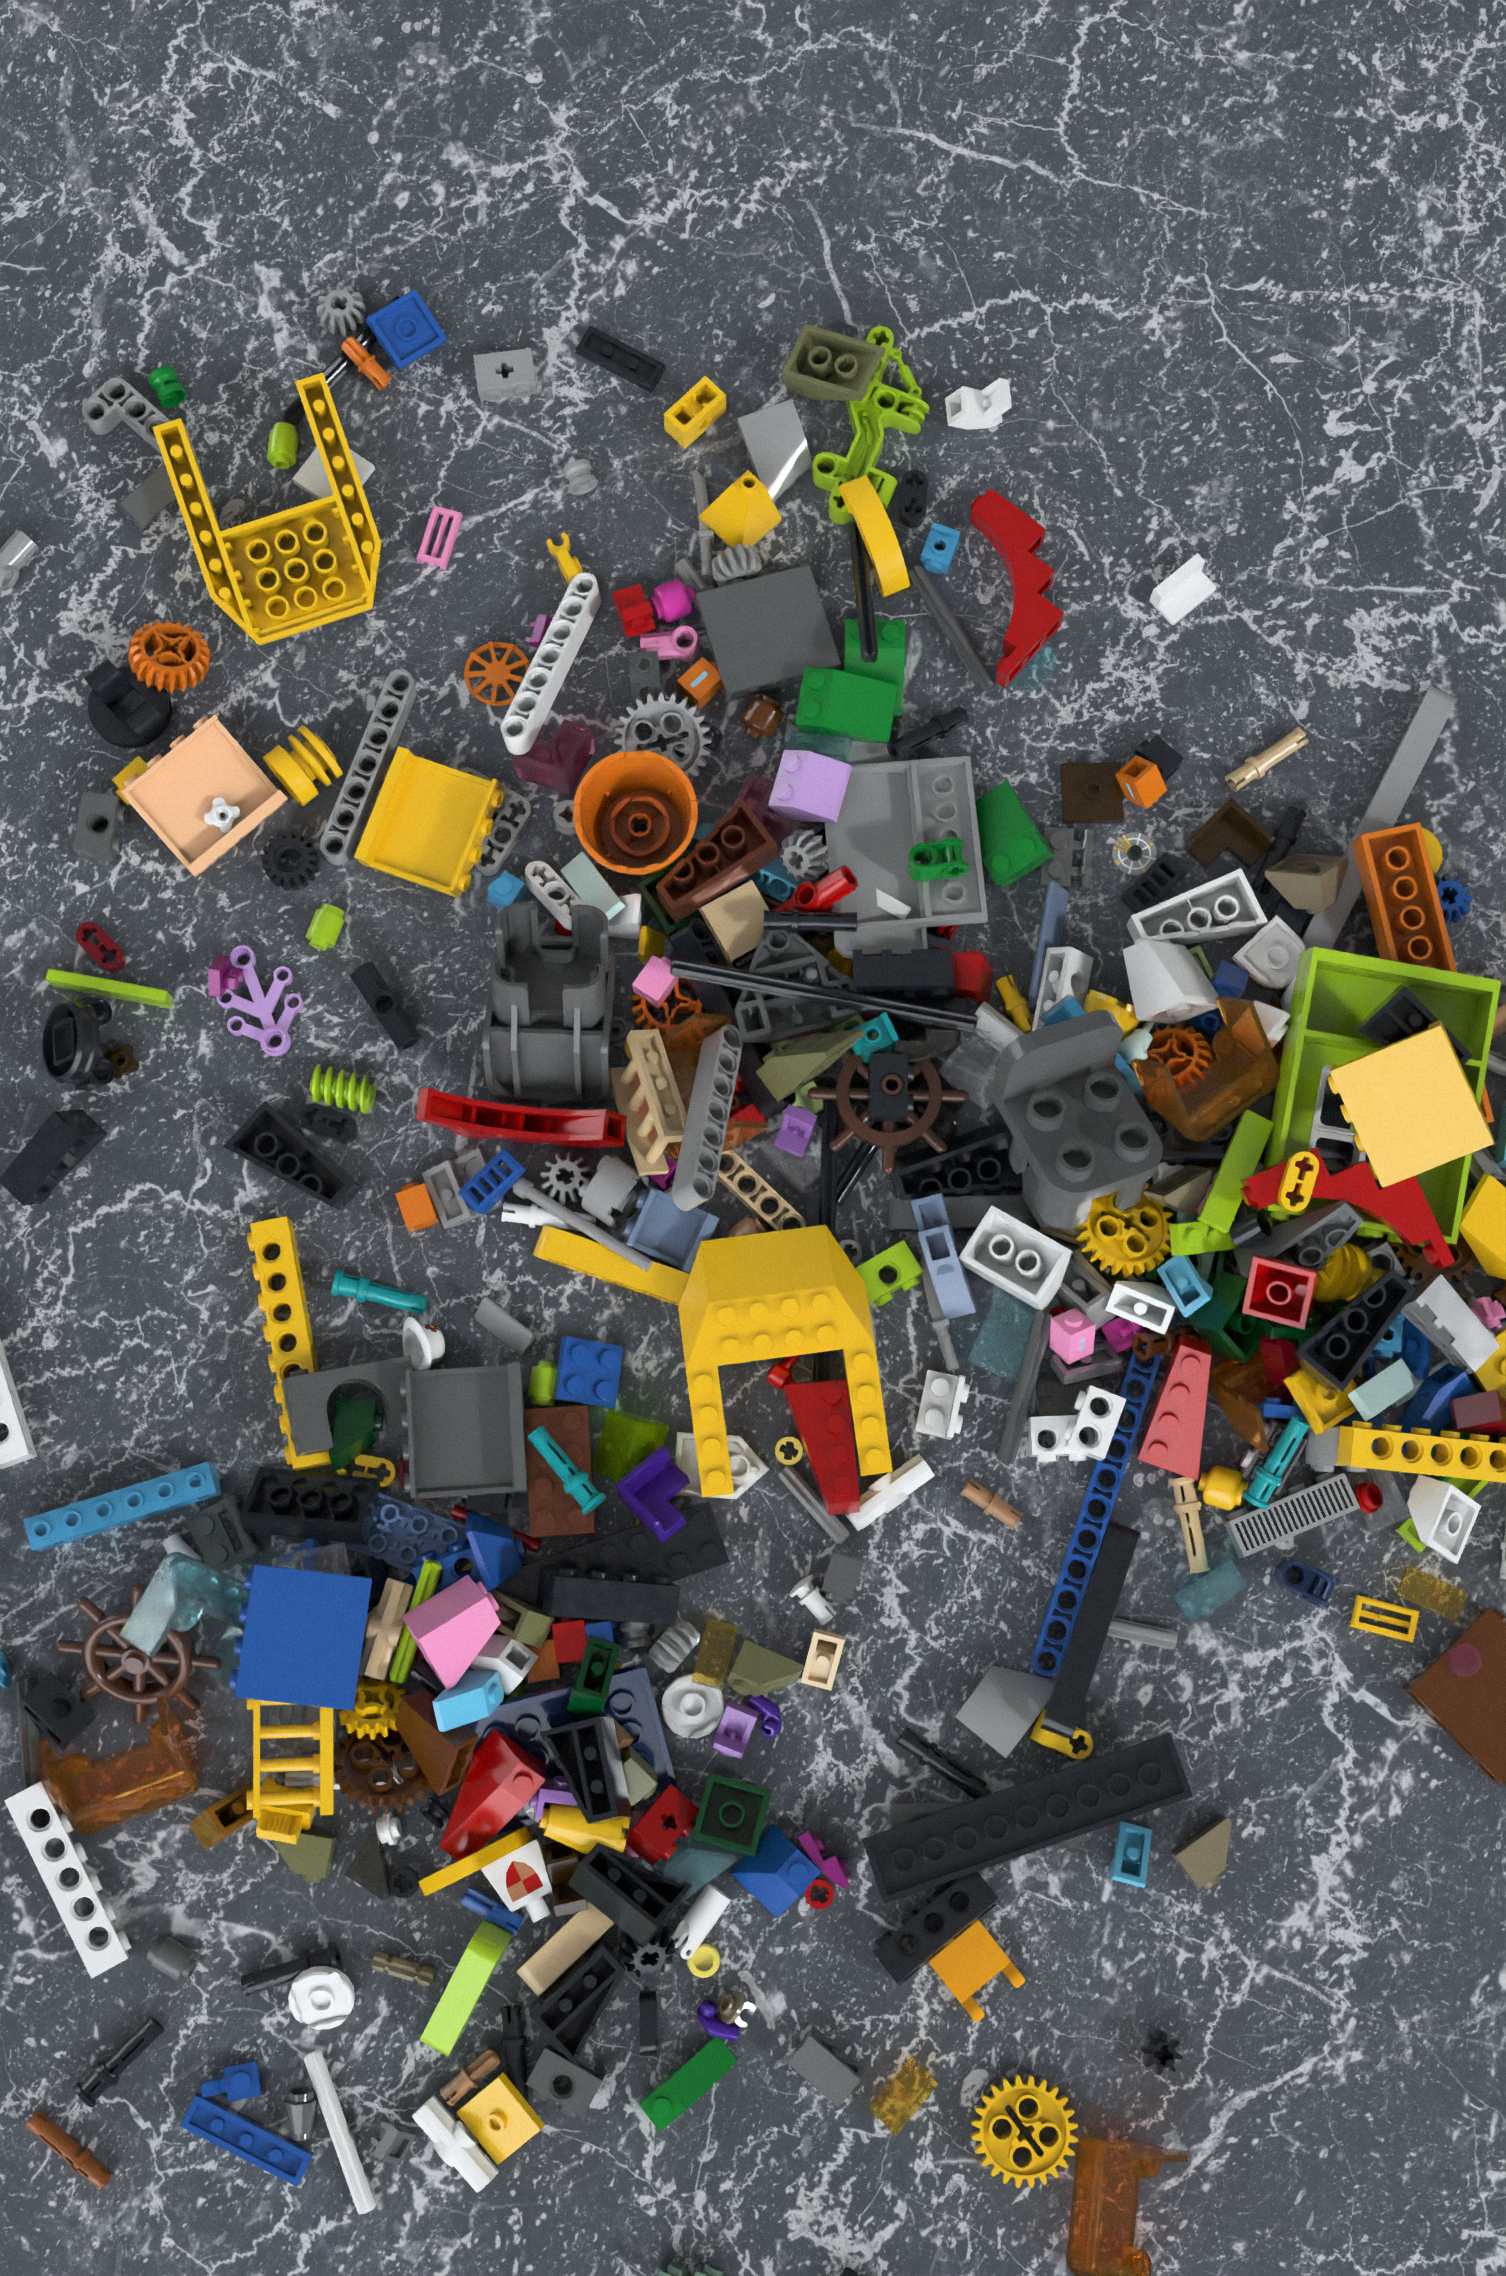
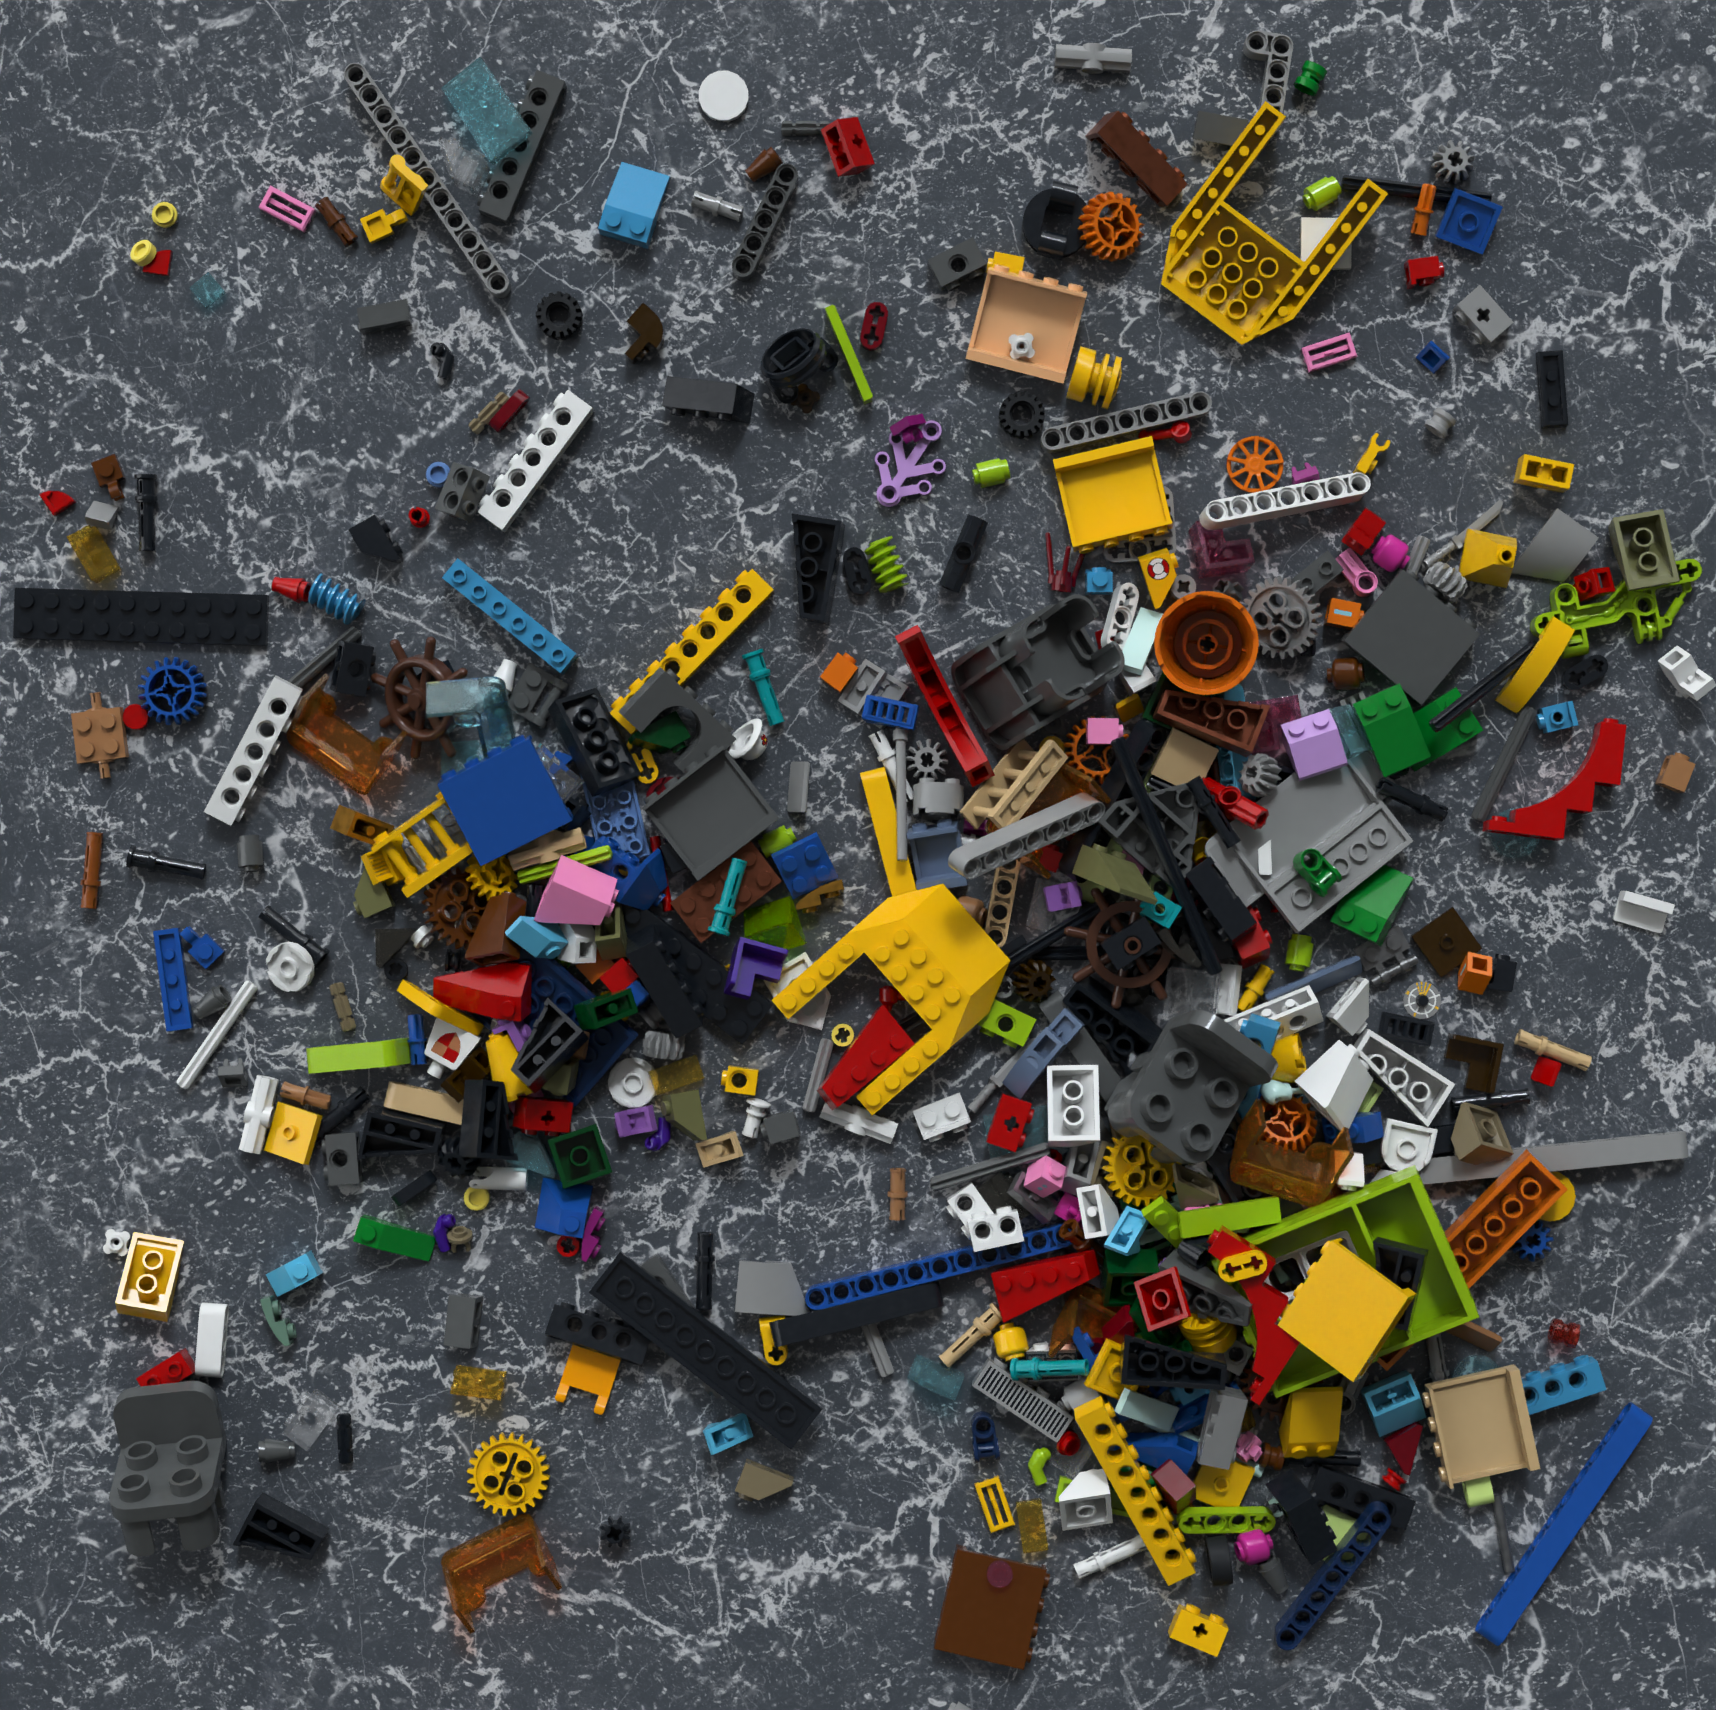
camera: 60 degrees right, 10 degrees up
(122, 589) = (1138, 157): none -> copper wedge
(414, 722) = (1179, 431): none -> red piece
(423, 401) = (1423, 271): none -> red brick
(480, 928) = (1062, 580): none -> dark red plant
(512, 444) = (1432, 357): none -> blue slope
(539, 830) = (1158, 573): none -> yellow slope
(629, 1388) = (812, 900): none -> pearl gold slope
(652, 2224) = (294, 1273): none -> medium azure slope
(769, 1574) = (751, 1076): none -> yellow brick
(833, 432) = (1588, 584): none -> red brick
(862, 1217) = (1033, 980): none -> dark brown gear
(994, 1353) = (1006, 1108): none -> red brick
(1008, 938) = (1299, 952): none -> lime brick
(1068, 476) = (1675, 772): none -> medium nougat brick
(1098, 921) = (1352, 1008): none -> white slope
(1284, 779) = (1546, 1071): none -> red slope
(1368, 1545) = (1037, 1463): none -> lime arm

